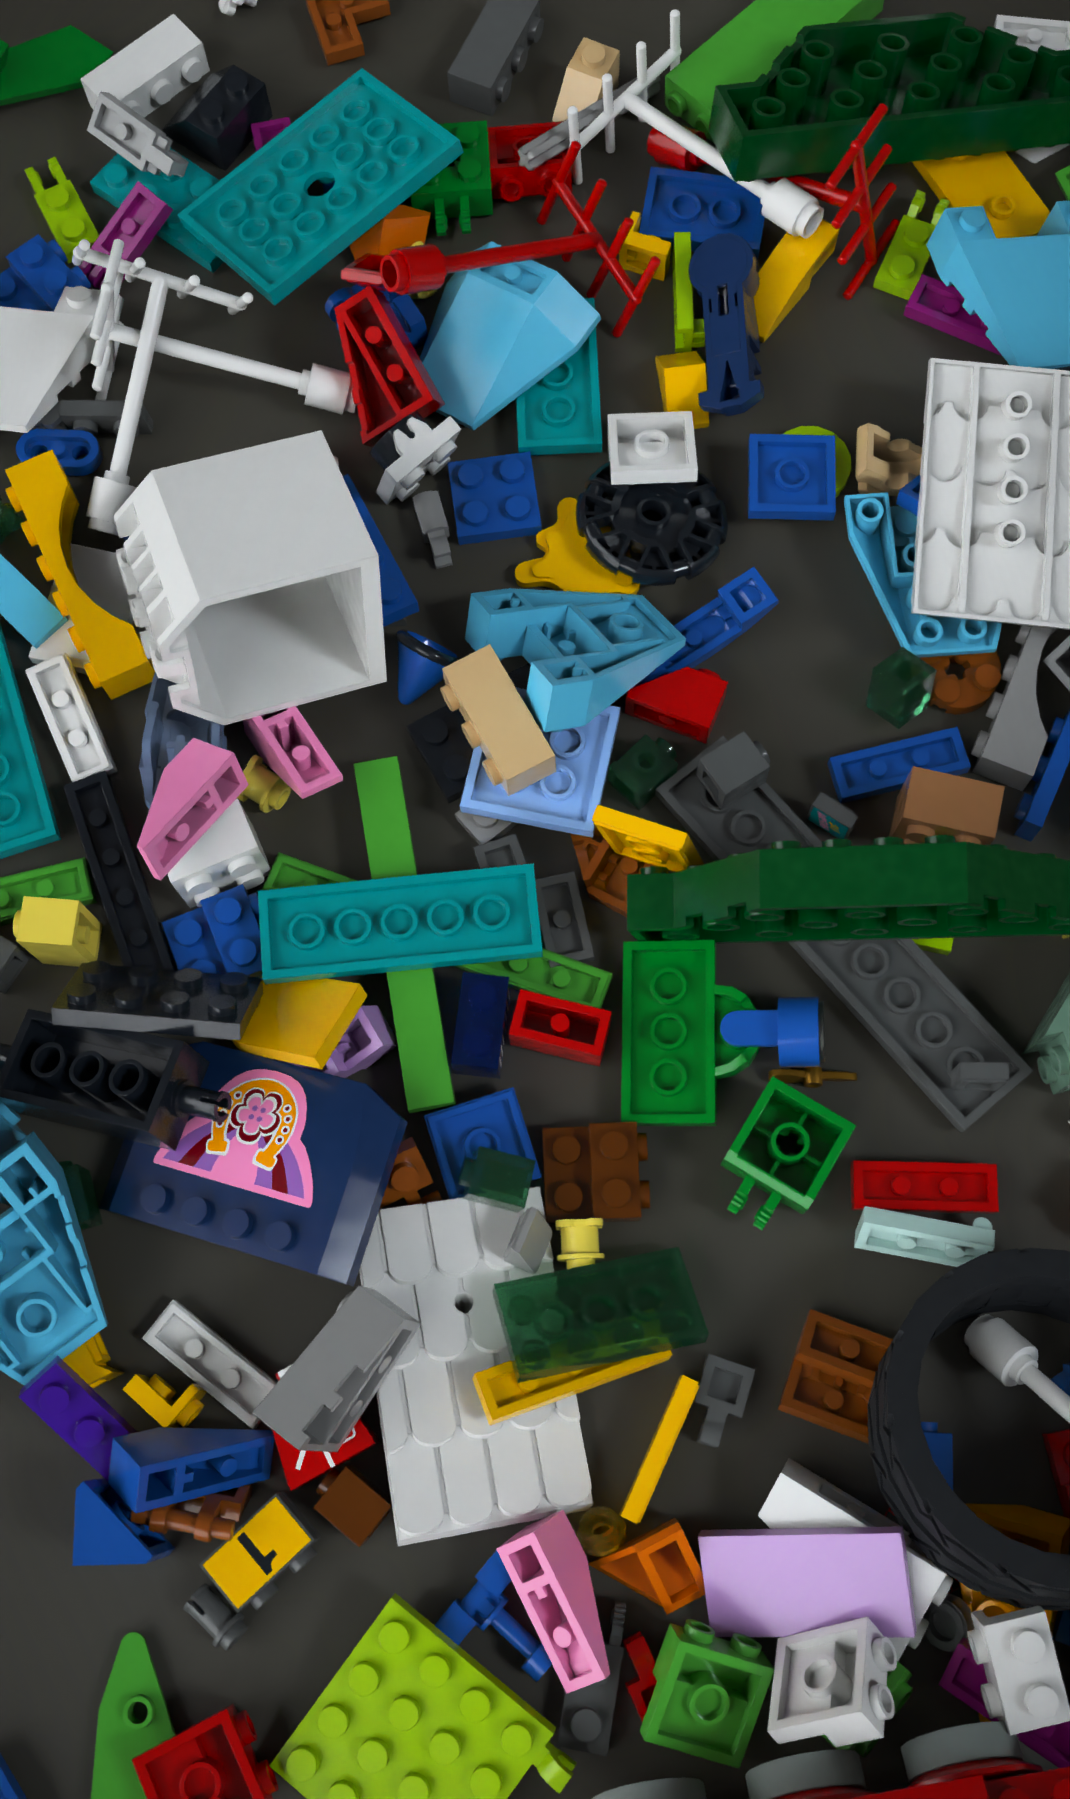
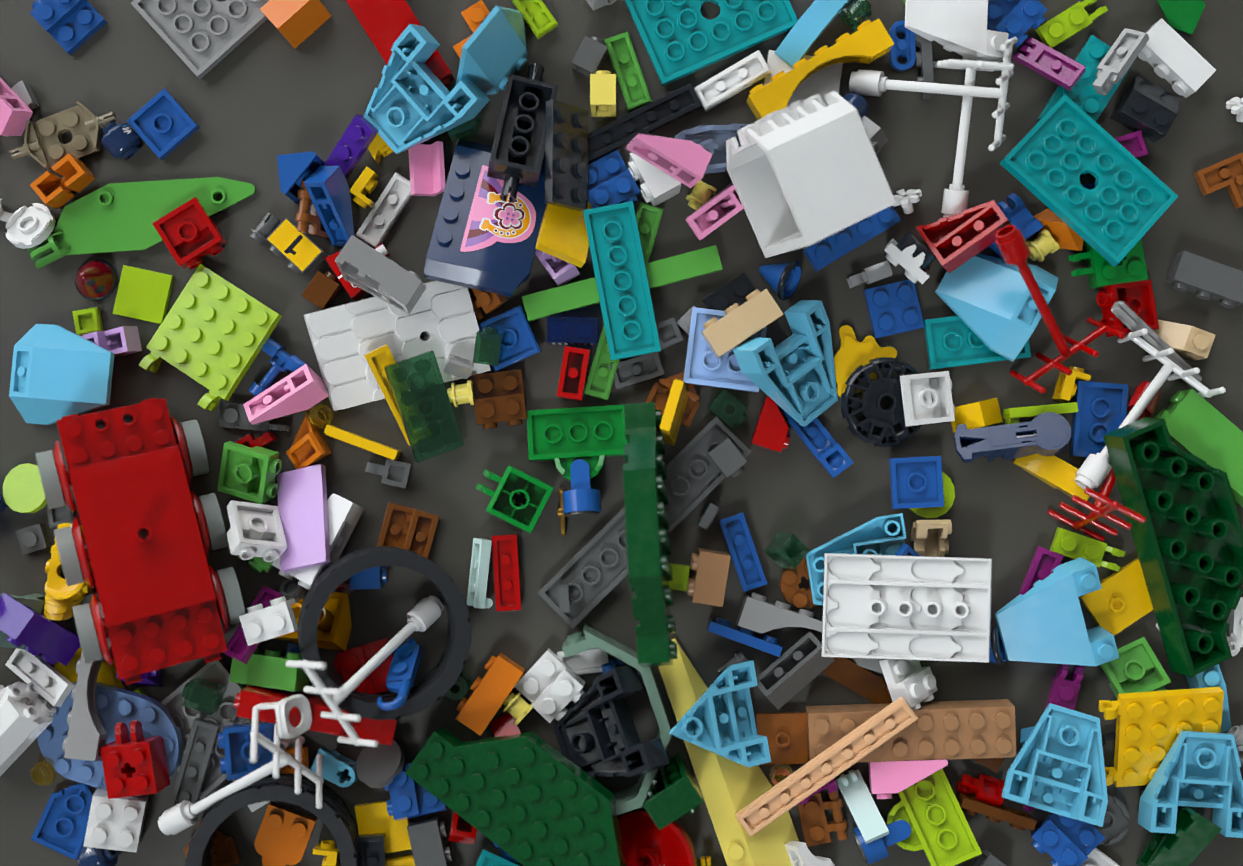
camera: 80 degrees right, 15 degrees up
(146, 1271) = (427, 169): none -> bright pink panel
(365, 271) = (1025, 220): red slope -> none

